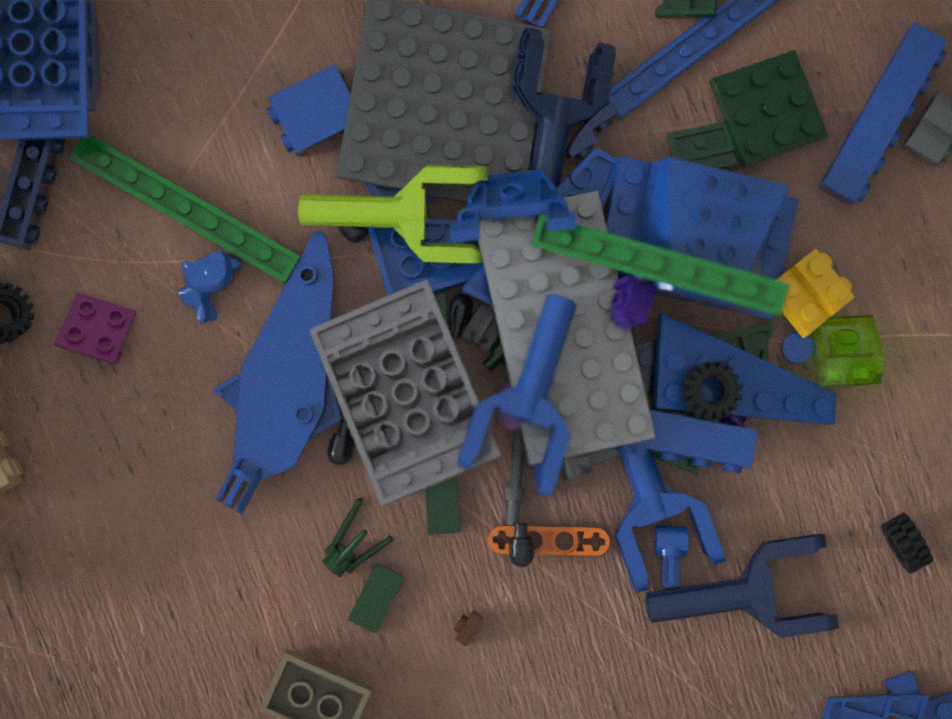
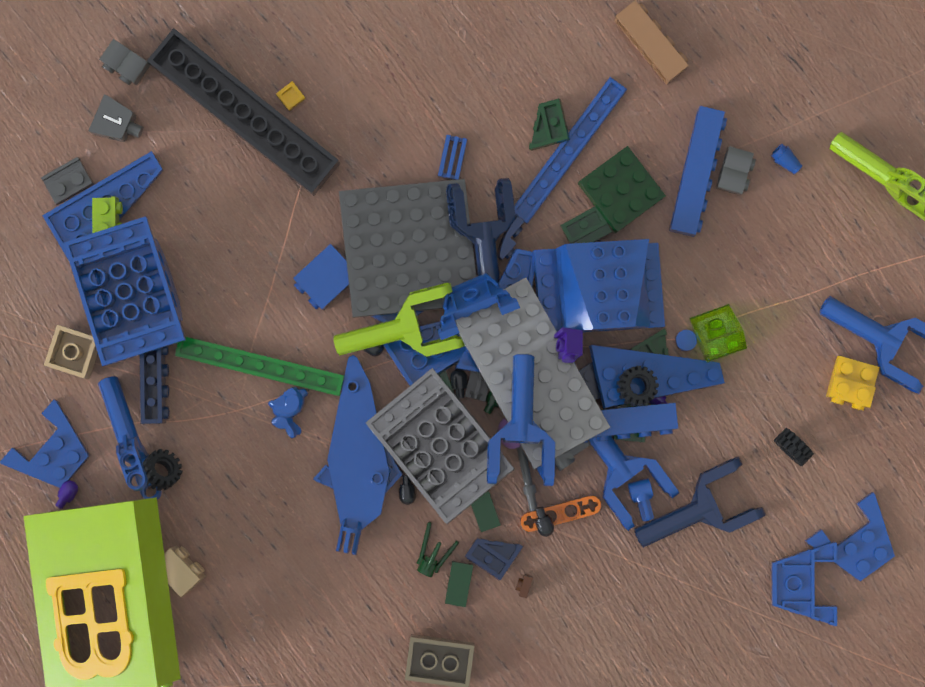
camera: 10 degrees left, 0 degrees up
(95, 328) = (224, 461): magenta hinge -> none
(436, 572) = (493, 556): none -> dark blue wing
(664, 266) = (583, 316): green plate -> none
(814, 292) = (683, 302): yellow plate -> none

